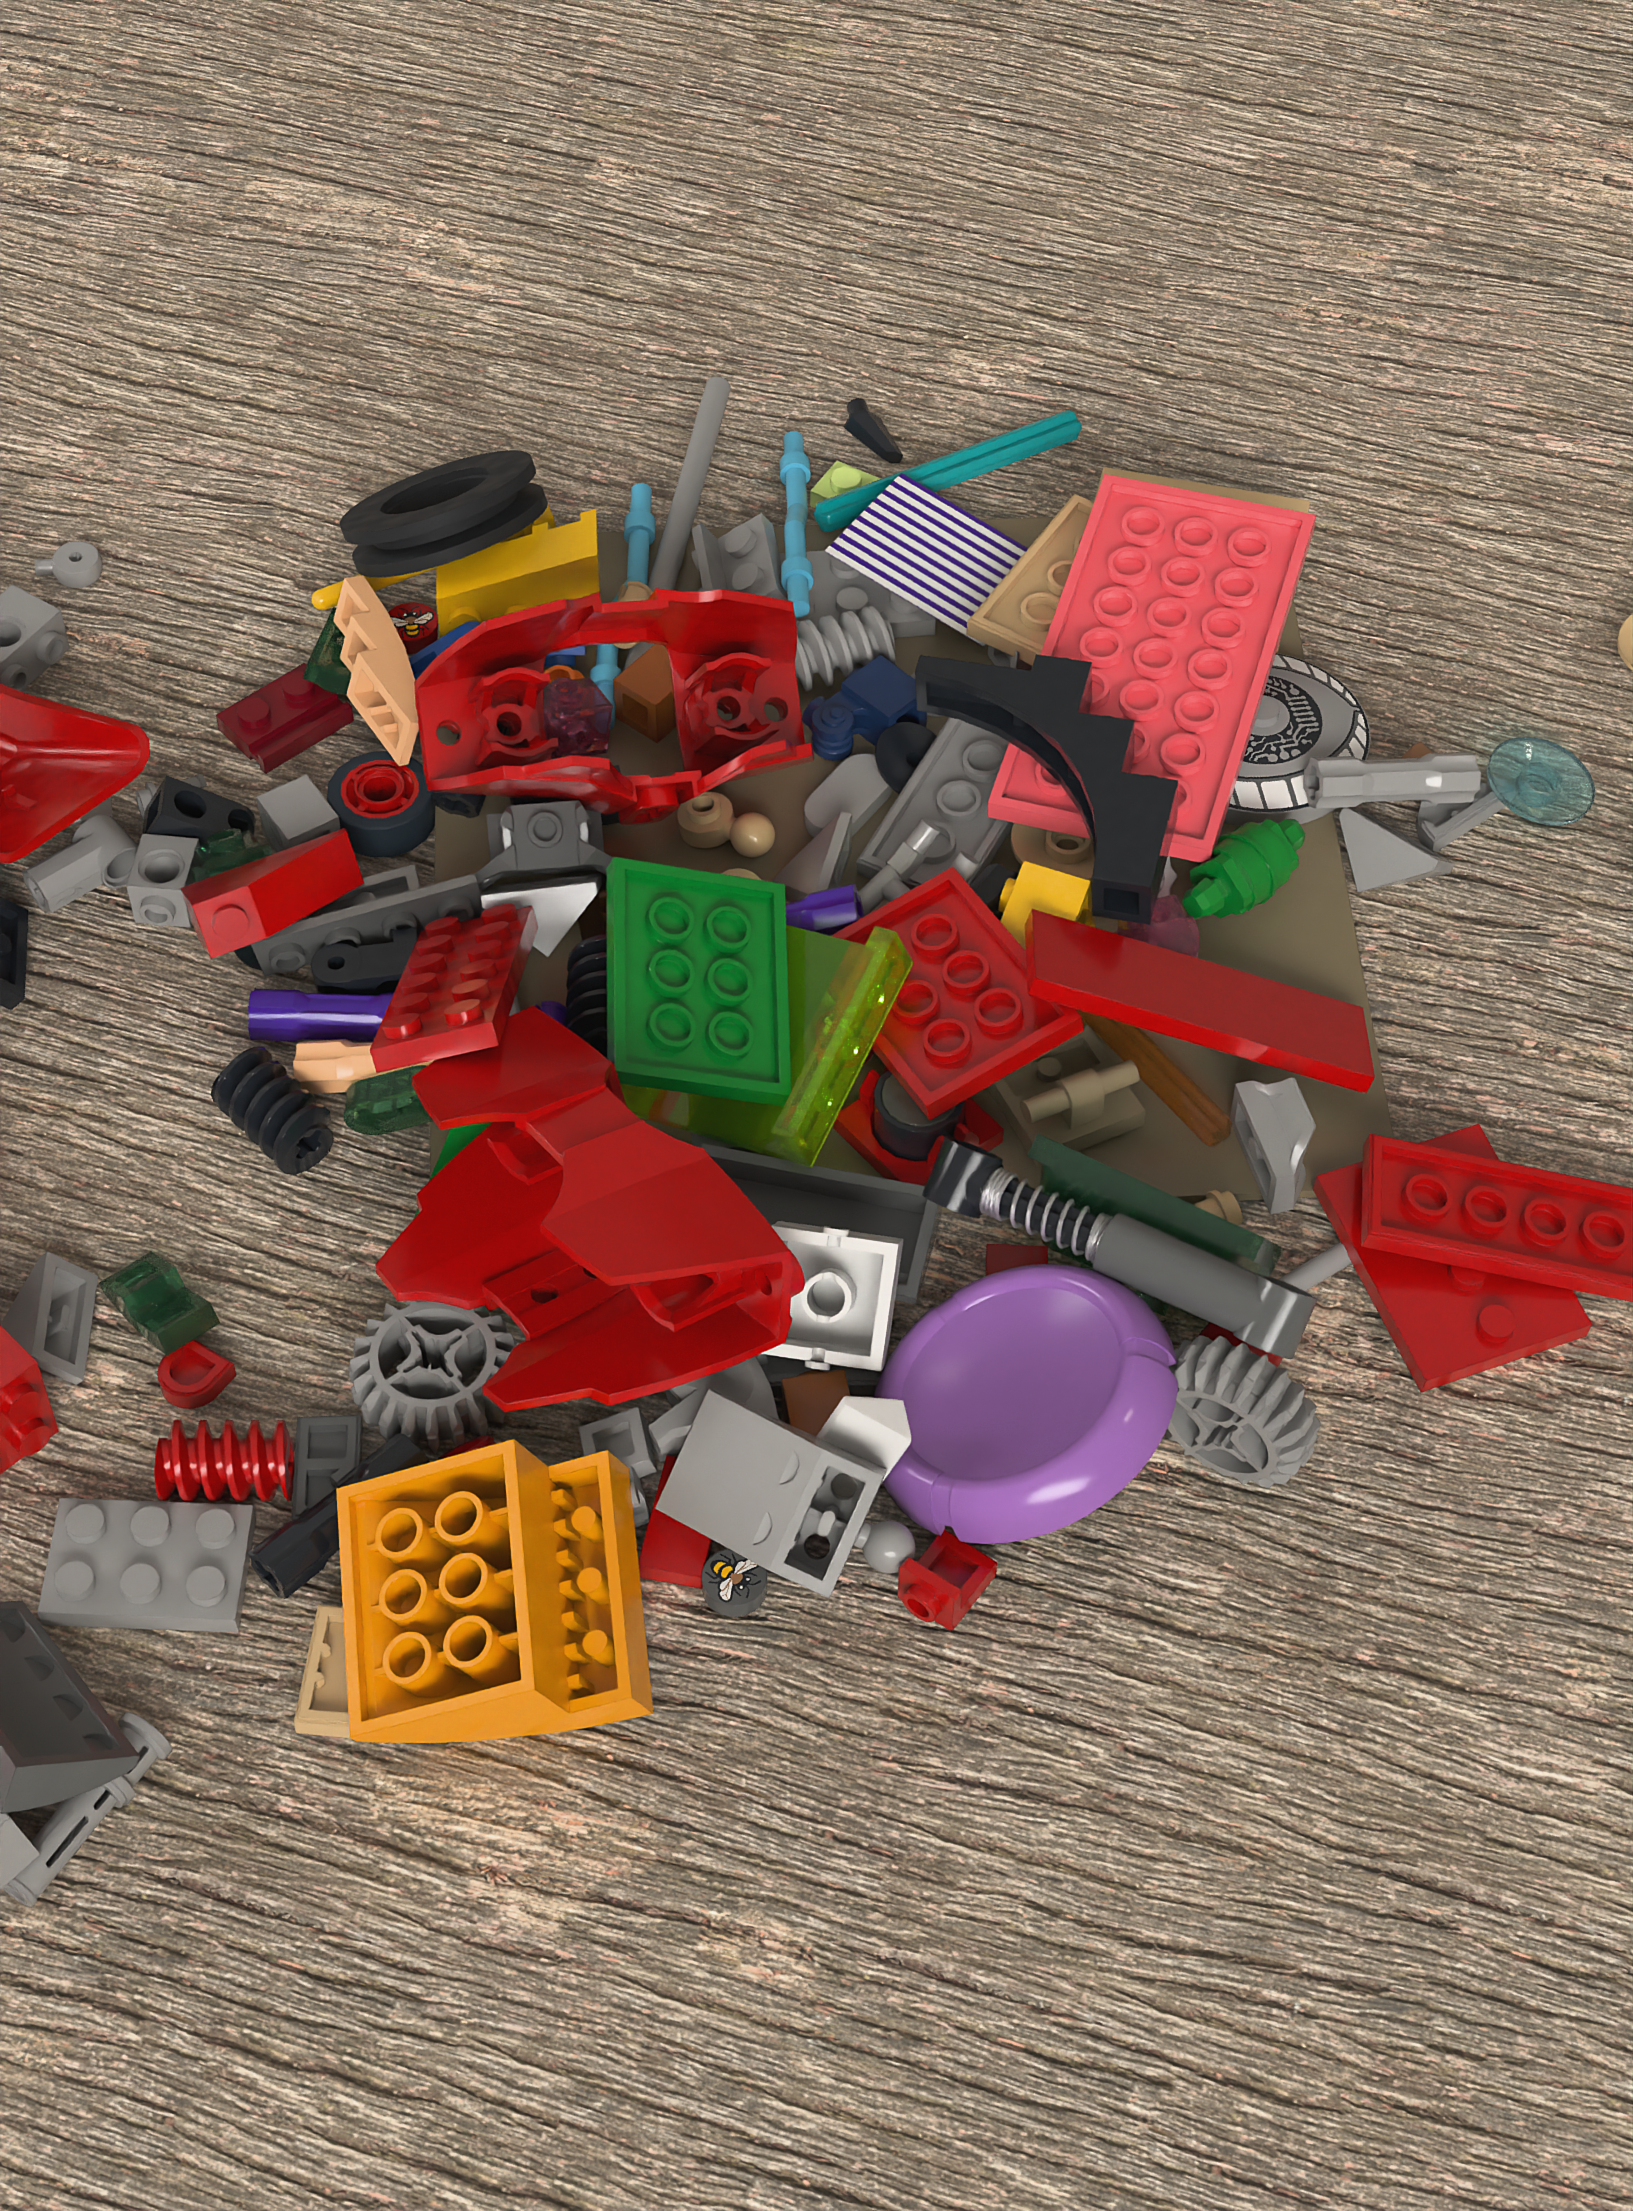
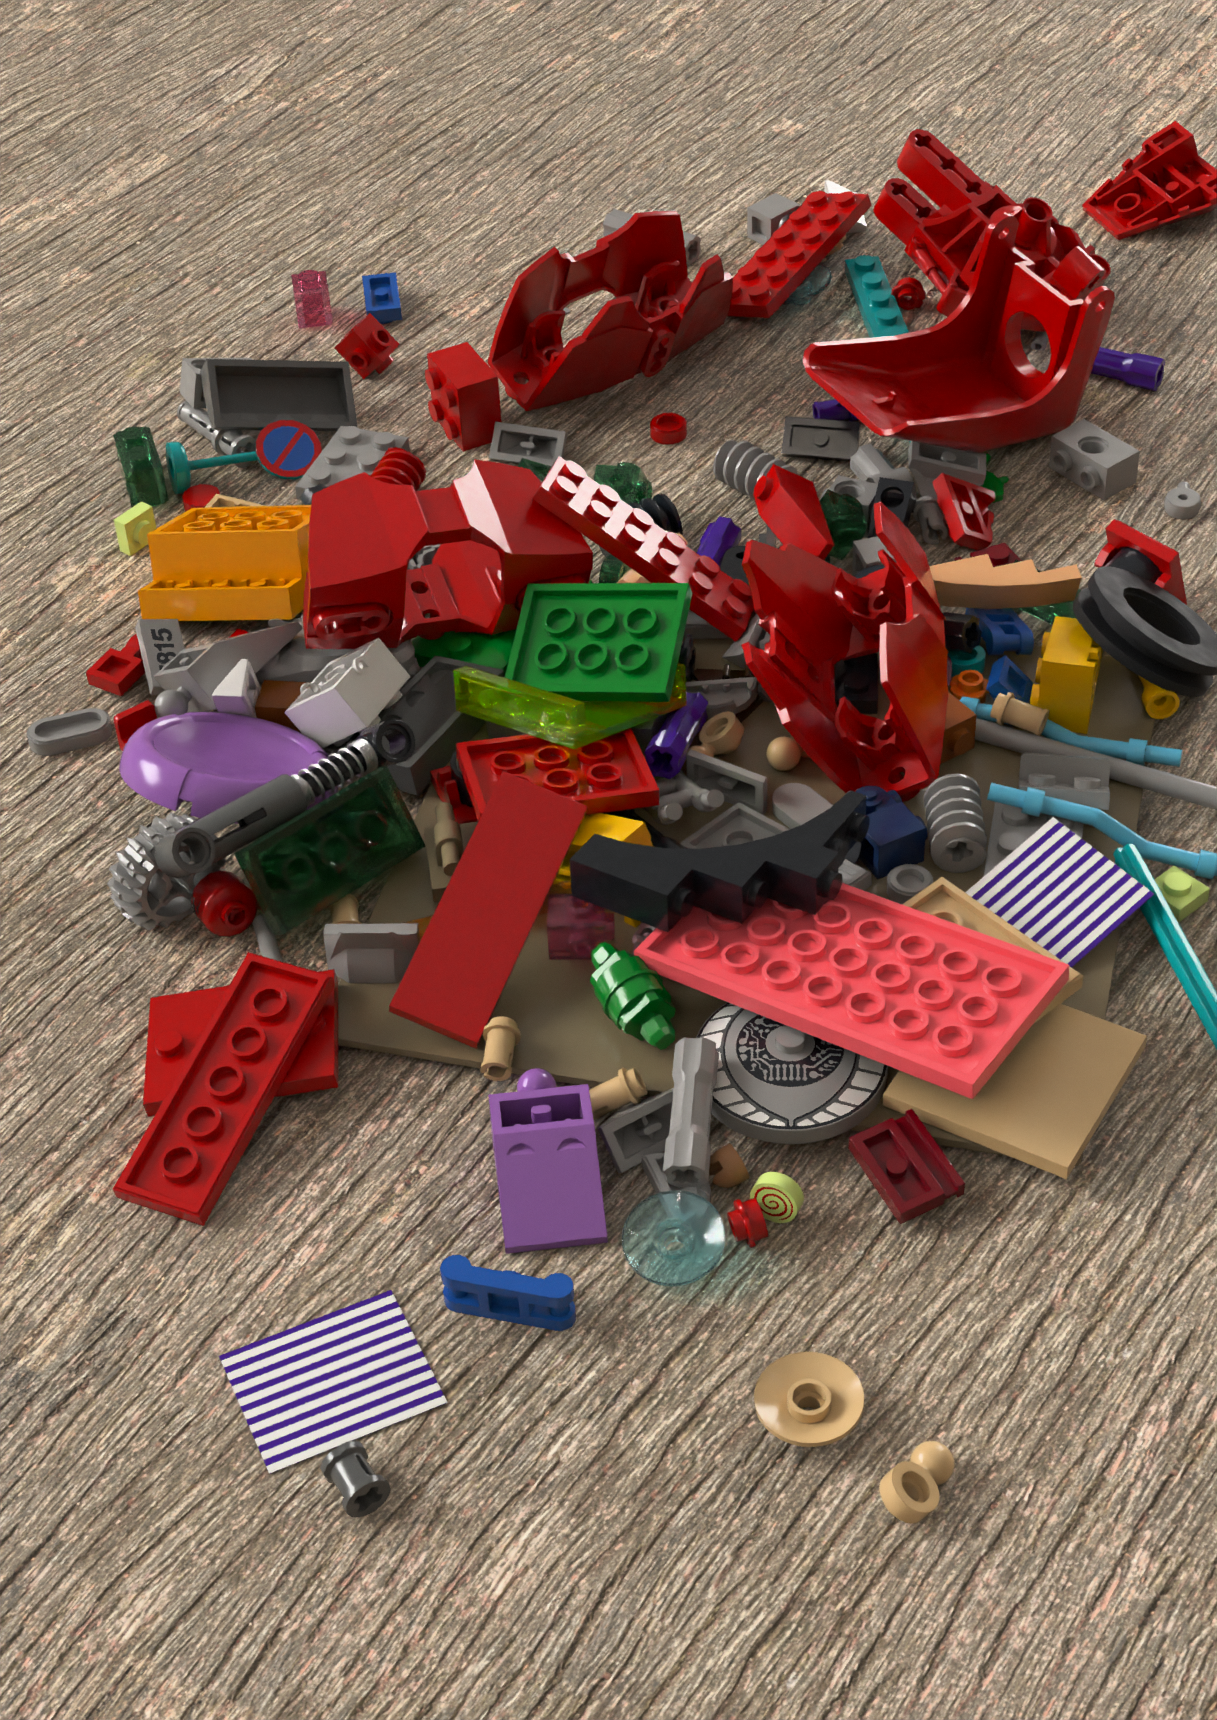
camera: 110 degrees right, 10 degrees down
(112, 996) = (743, 465): none -> light grey piece
(146, 1670) = (282, 449): none -> piece
(195, 1145) = (626, 480): none -> clear green brick
(196, 751) = (965, 511): none -> red wing
(236, 1876) = (140, 466): none -> clear green brick
(287, 1764) = (198, 496): none -> red tile
(292, 555) = (1142, 556): none -> red piece
(414, 1814) = (133, 528): none -> yellowish green plate
(753, 1624) = (158, 643): none -> light grey tile
(785, 1695) = (117, 669): none -> red plate
(935, 1720) = (69, 731): none -> light grey tile
(1351, 628) = (906, 1166): none -> dark red plate
(1362, 984) = (500, 1037): none -> tan pin
(1368, 876) = (617, 1092): none -> tan pin
(1440, 718) = (777, 1196): none -> yellowish green tile
(1479, 736) = (747, 1222): none -> red plate
(1491, 909) = (547, 1165): none -> medium lavender slope

